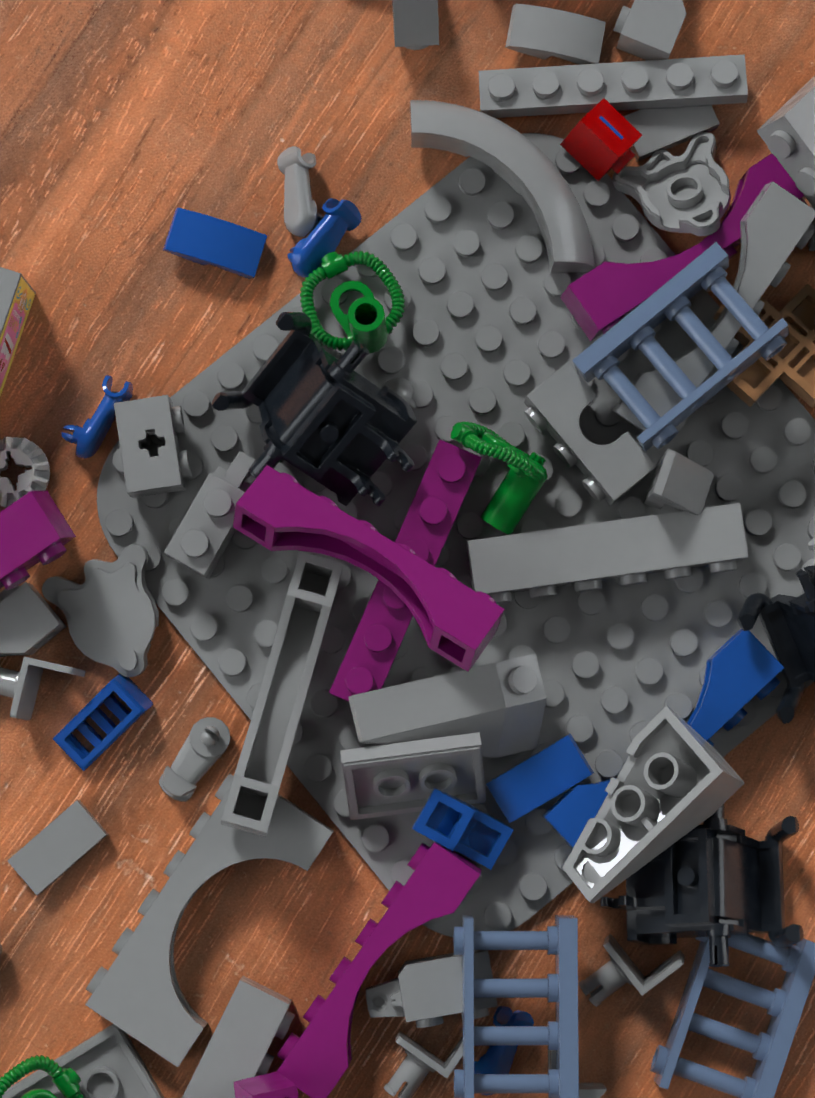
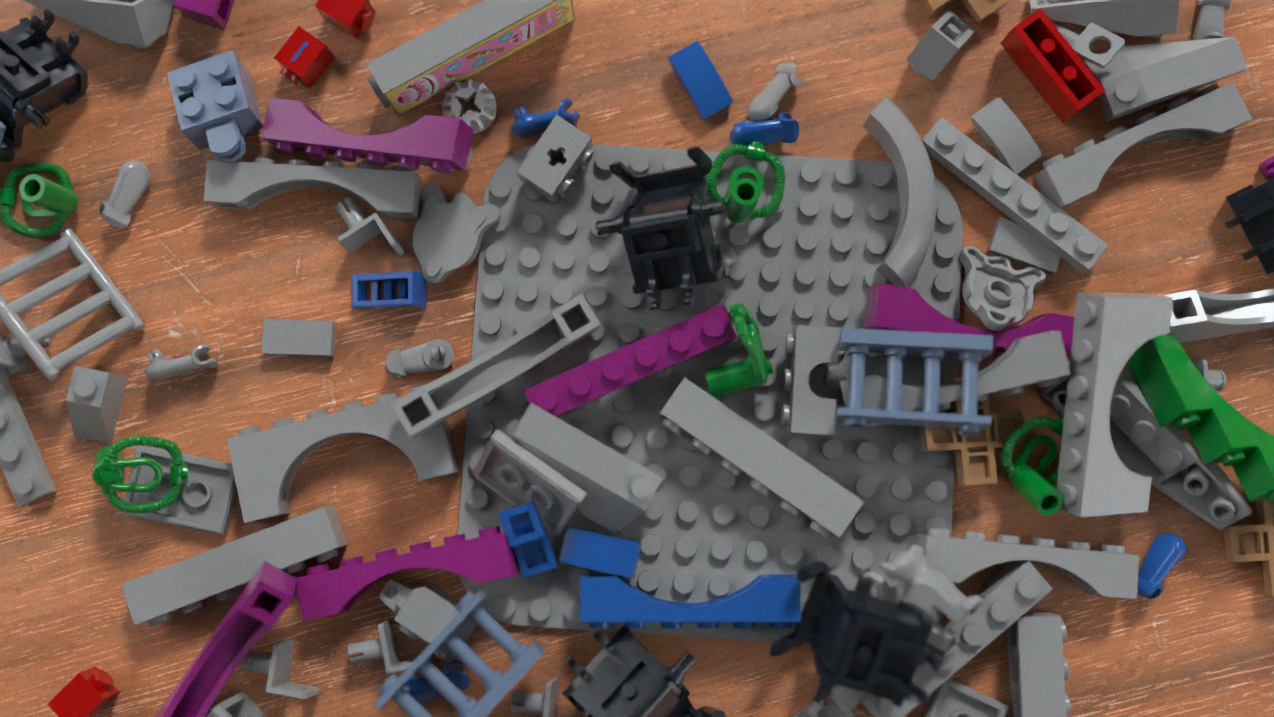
camera: 50 degrees right, 0 degrees up
(210, 518) = (552, 231): light grey hinge -> none
(290, 517) = (593, 268): magenta arch -> none
(602, 141) = (977, 220): red brick -> none
(658, 797) = (654, 628): light grey wedge -> none
(679, 484) = (838, 458): light grey slope -> none

